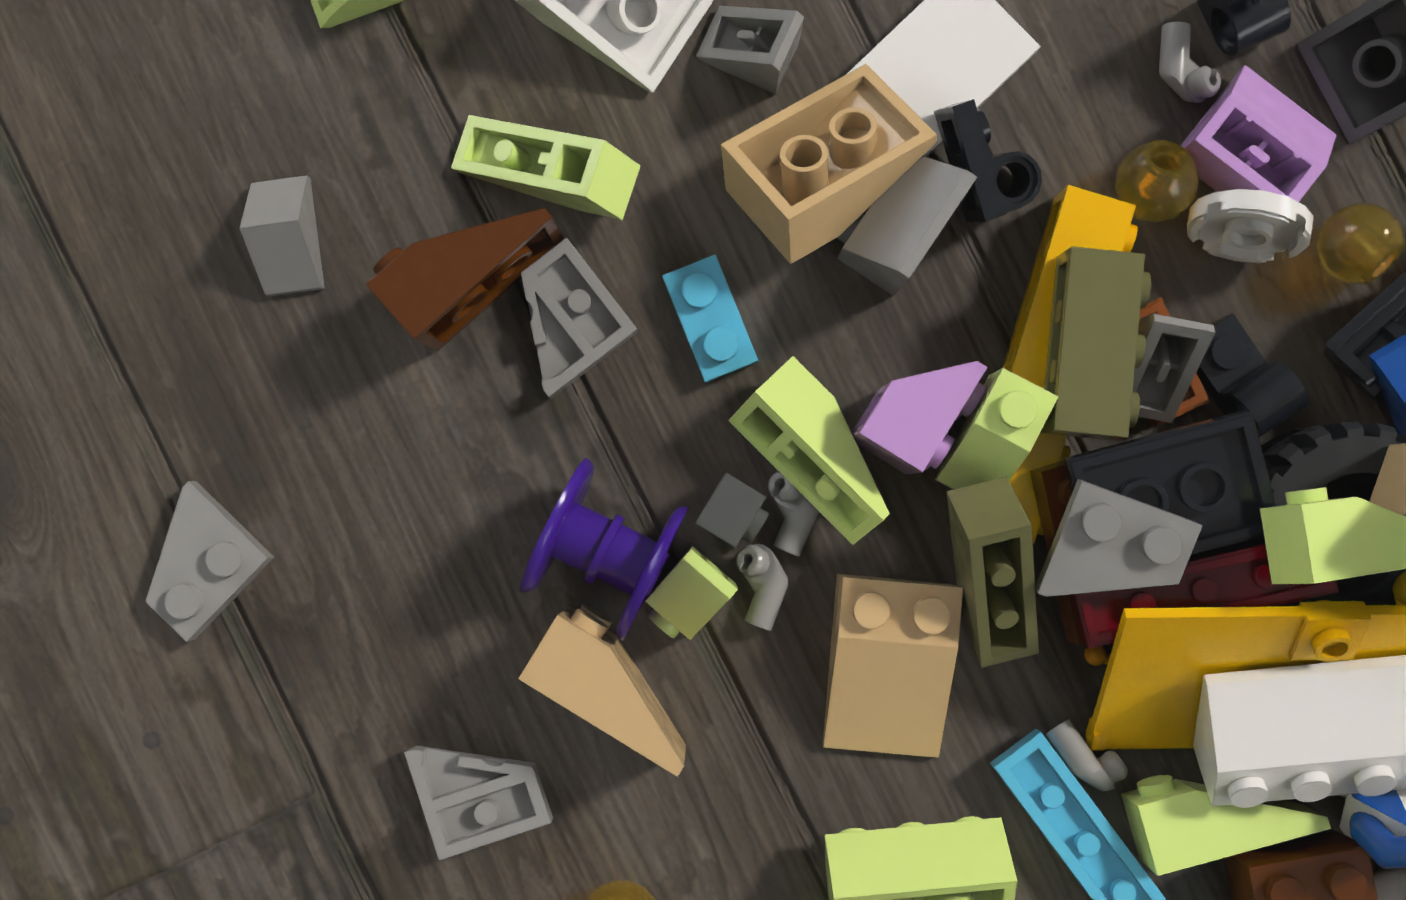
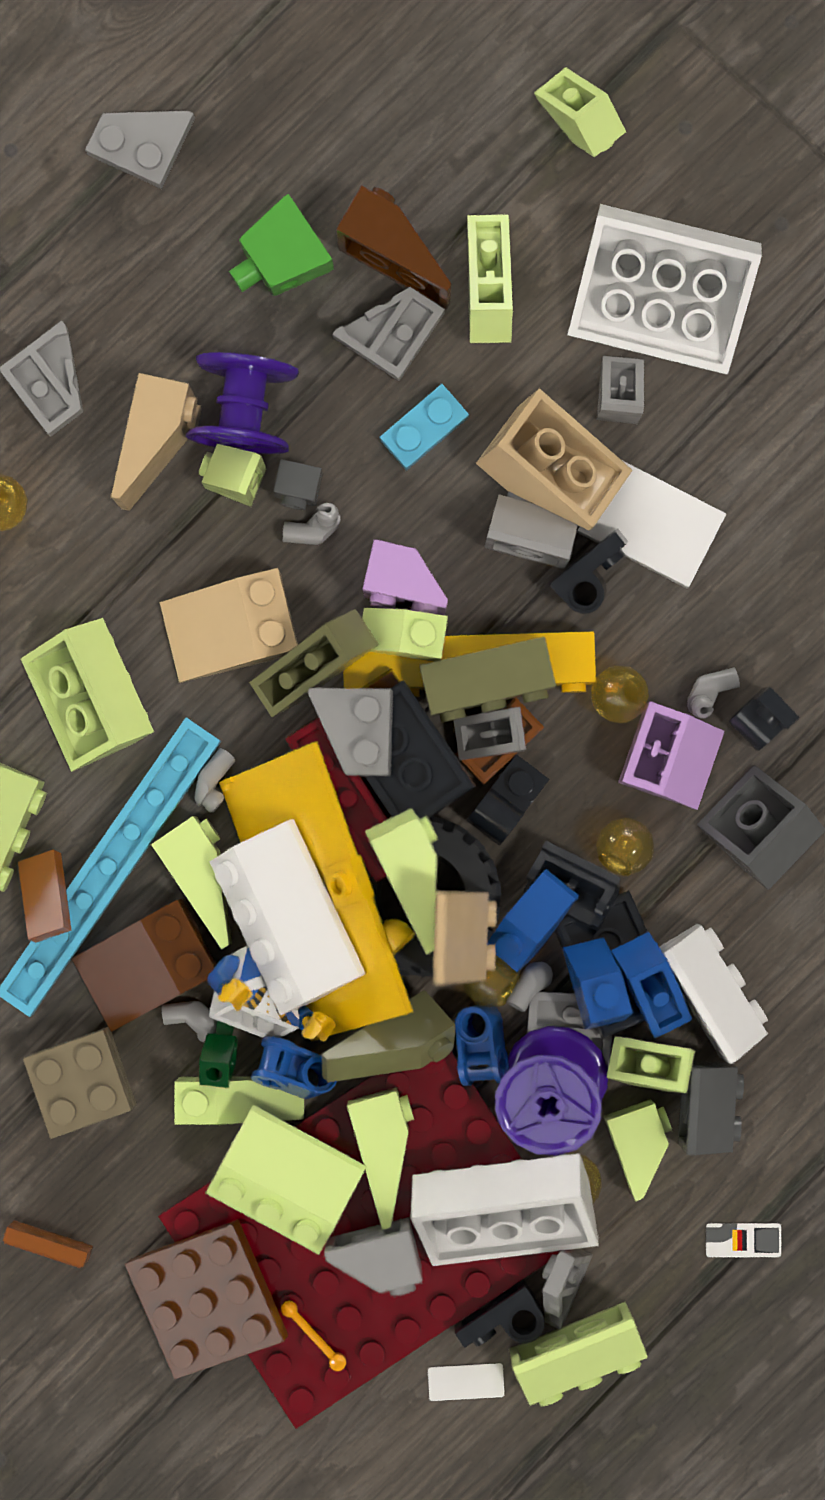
camera: 65 degrees right, 0 degrees up
(283, 236) = (382, 118): light grey slope -> none
(413, 426) = (281, 251): none -> bright green torso
(767, 581) = (259, 526): light grey arm -> none
(810, 444) = (364, 512): yellowish green slope -> none
(1250, 225) = (607, 762): white tile -> none

